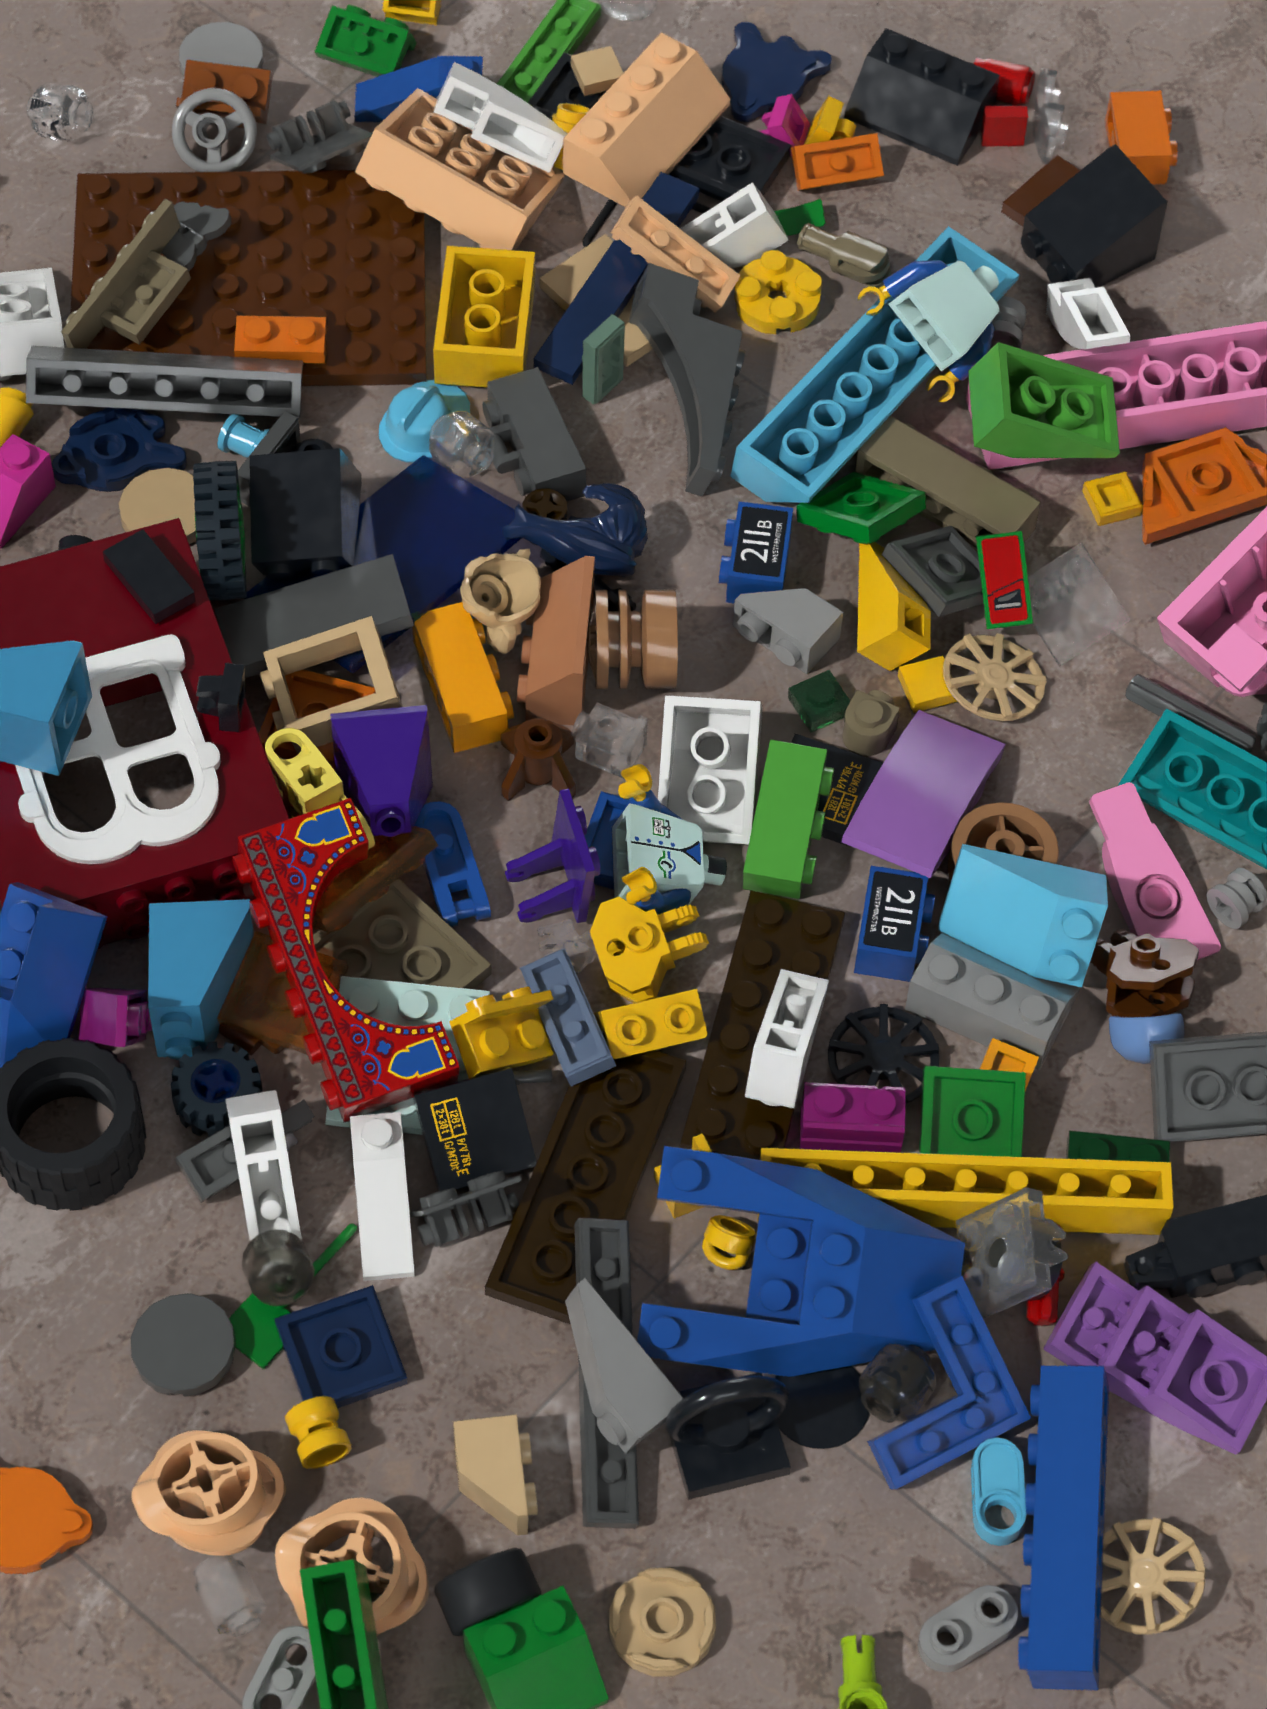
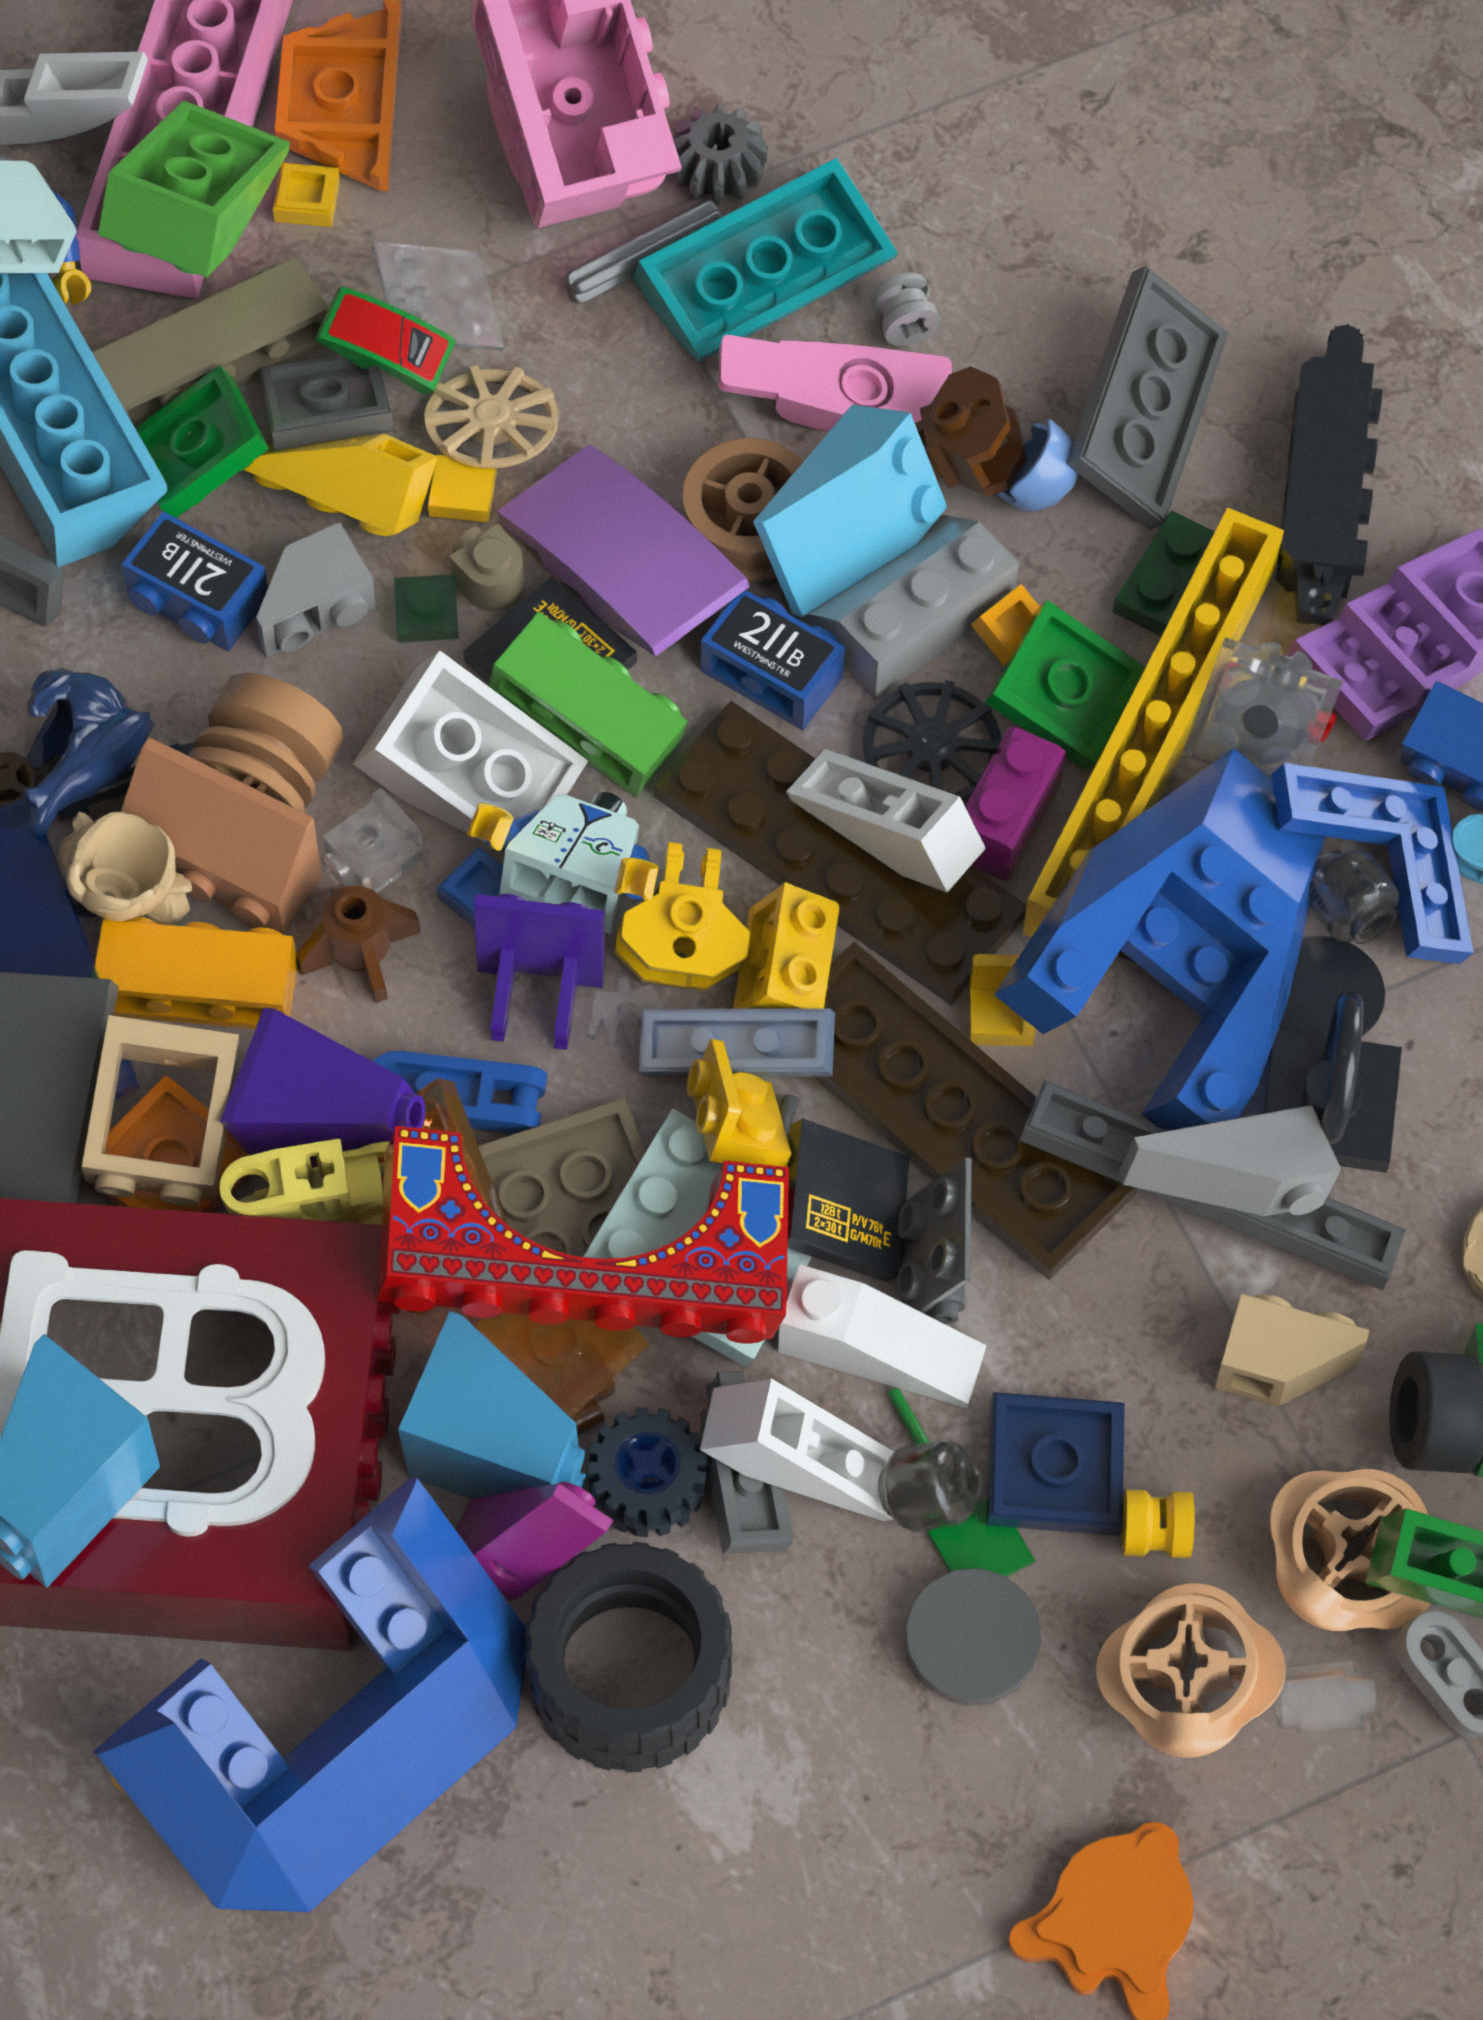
camera: 65 degrees left, 5 degrees up
(223, 696) = (155, 1221): black tile -> none
(730, 1236) = (1110, 991): yellow tile -> none

